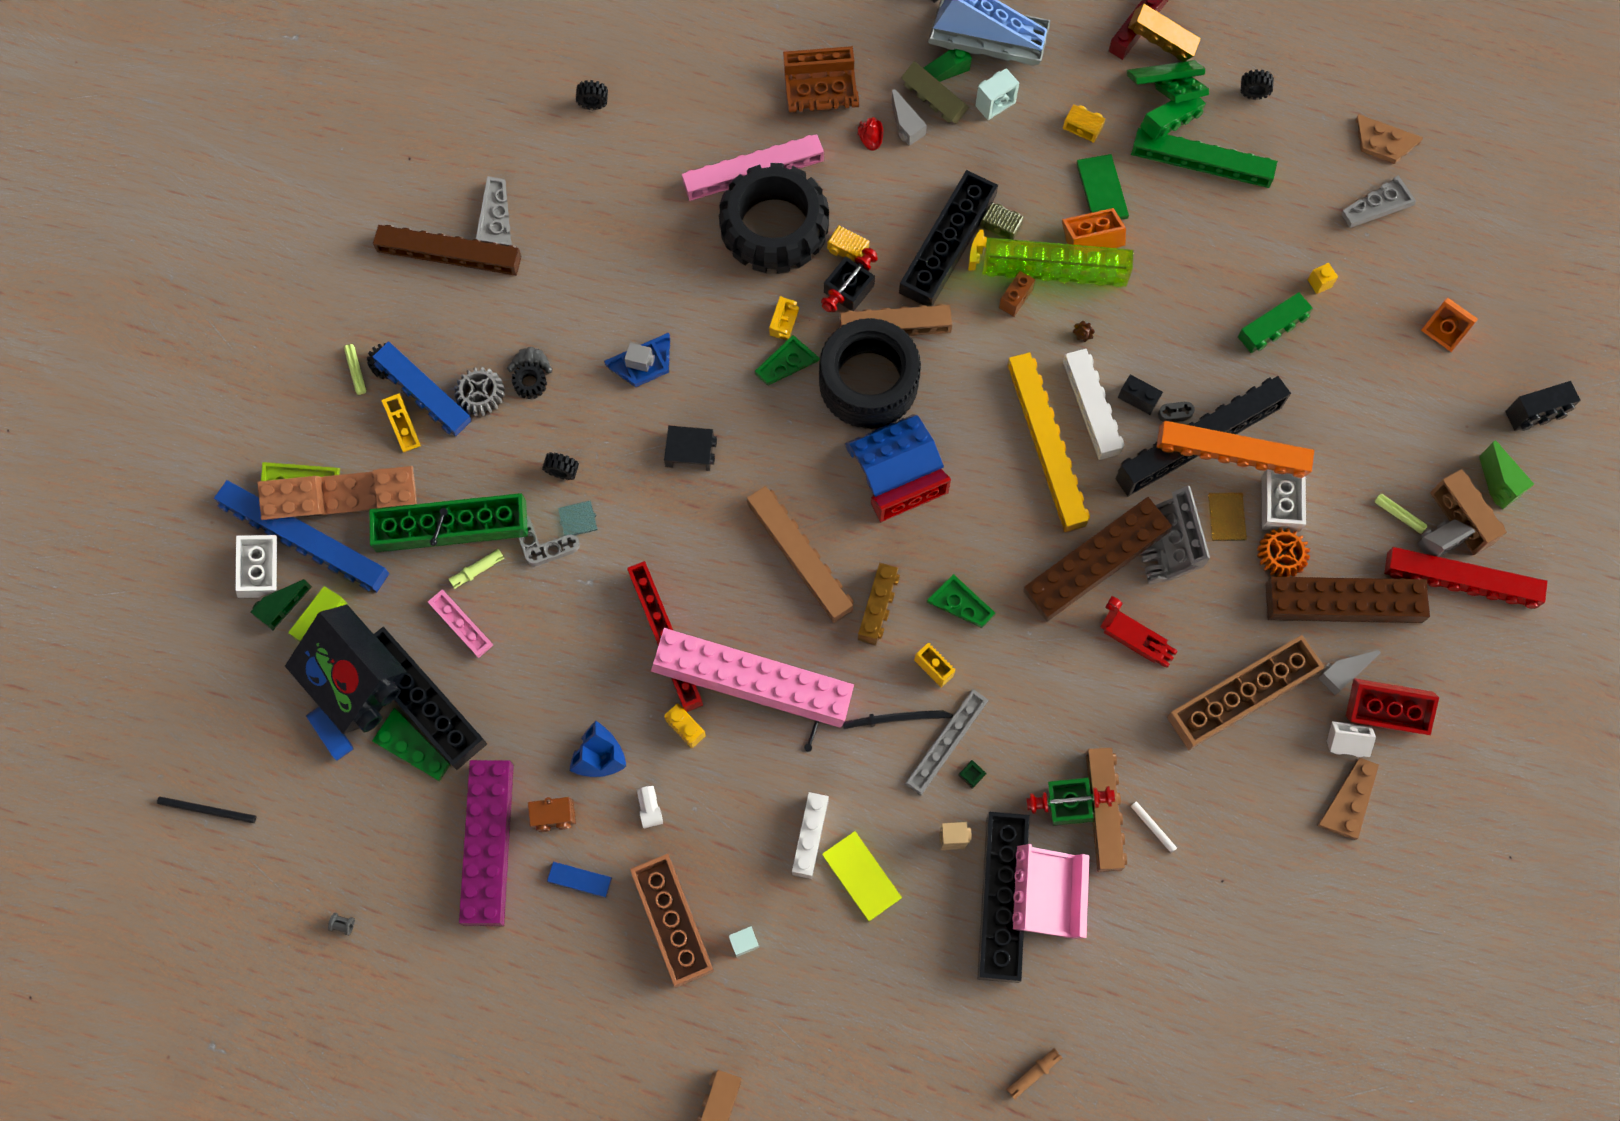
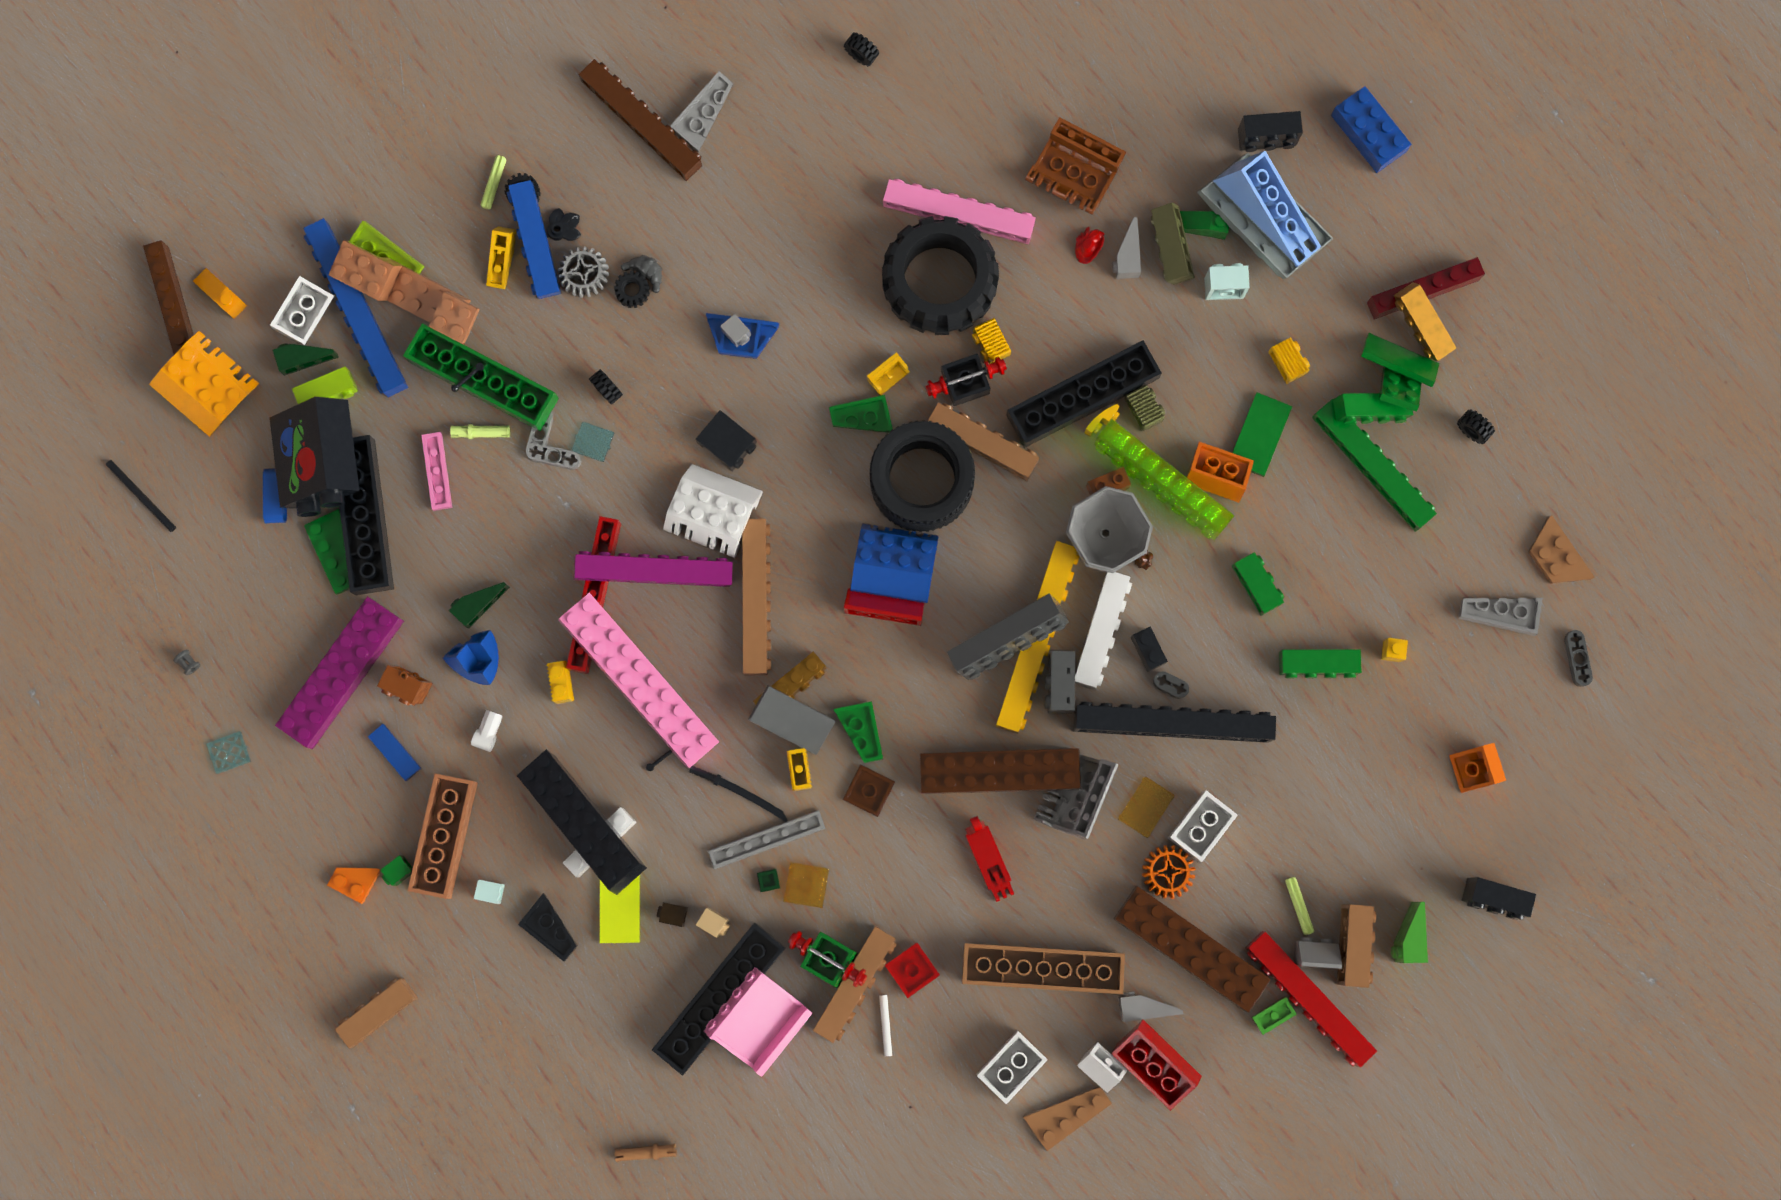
camera: 35 degrees right, 10 degrees up
(144, 639) = (169, 294): none -> reddish brown brick
(172, 597) = (220, 293): none -> light orange slope
(204, 678) = (202, 384): none -> light orange slope
(419, 980) = (232, 765): none -> clear light blue window
(438, 367) = (565, 223): none -> black plate
(567, 710) = (474, 605): none -> dark green slope
(618, 1015) = (354, 882): none -> orange wing
(650, 978) = (396, 871): none -> green brick
(700, 583) = (652, 570): none -> magenta brick
(715, 507) = (711, 509): none -> white slope
(786, 824) = (581, 822): none -> black brick
(814, 938) = (547, 928): none -> black wing
(900, 628) = (791, 720): none -> dark grey tile
(913, 854) = (672, 914): none -> dark brown brick
(1001, 647) = (869, 790): none -> reddish brown tile
(1006, 756) = (806, 885): none -> clear yellow plate
(1028, 449) = (1008, 637): none -> dark grey brick
(1048, 309) = (1121, 517): none -> light grey rock
(1093, 461) = (1060, 683): none -> dark grey piece
(1142, 766) = (912, 970): none -> red plate
(1184, 295) = (1258, 583): none -> green brick
(1235, 449) = (1186, 757): orange brick -> none
(1280, 788) = (1011, 1067): none -> white brick
(1447, 609) = (1274, 1015): none -> bright green plate
(1456, 194) = (1583, 651): none -> dark grey beam

